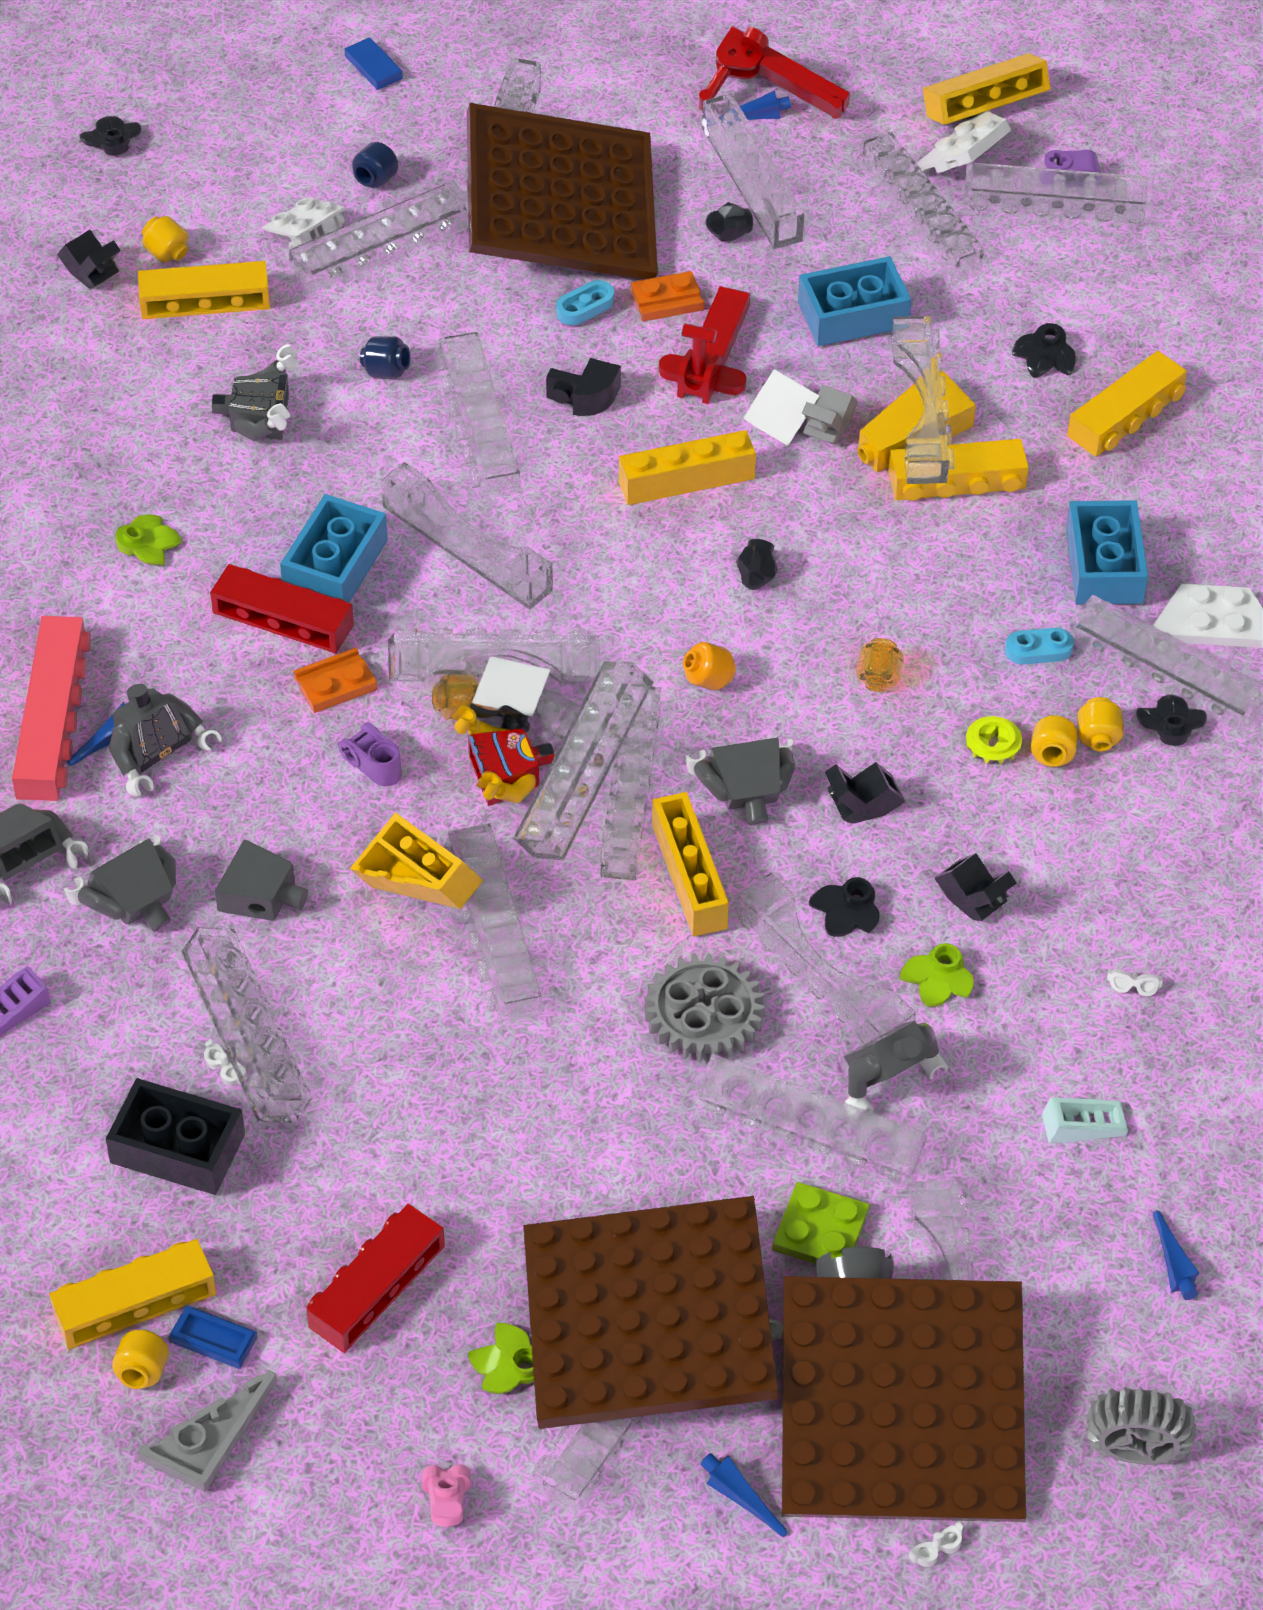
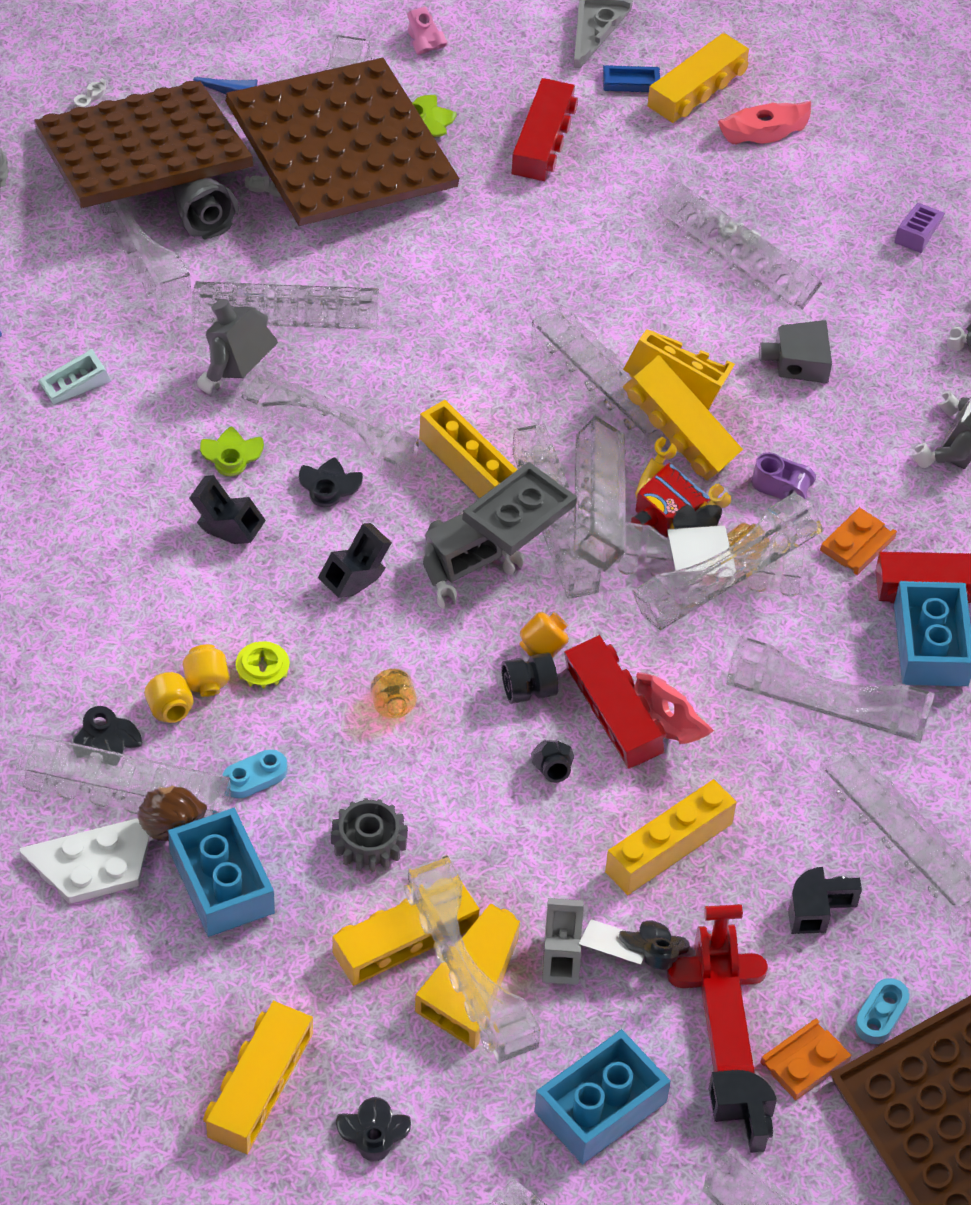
camera: 155 degrees right, 0 degrees up
(120, 1208) = (747, 127): none -> coral piece
(131, 885) = (892, 317): dark grey torso -> none
(140, 1359) = (667, 45): yellow head -> none
(175, 1136) = (736, 162): black brick -> none
(451, 812) = (682, 418): none -> yellow brick
(630, 565) = (684, 723): none -> coral piece
(672, 592) = (615, 702): none -> red brick
(682, 747) = (519, 508): none -> dark grey plate
(704, 1007) = (406, 365): light grey gear -> none
(729, 222) = (792, 1171): black rock -> none
(738, 271) = (746, 1097): none -> black brick
(743, 634) = (529, 678): none -> black wheel
(746, 401) = (656, 944): none -> black plate
(819, 1224) = (248, 253): lime plate -> none
(957, 552) = (369, 834): none -> dark grey gear
(1122, 982) = (68, 490): white piece -> none
(1141, 597) = (169, 809): none -> reddish brown hair

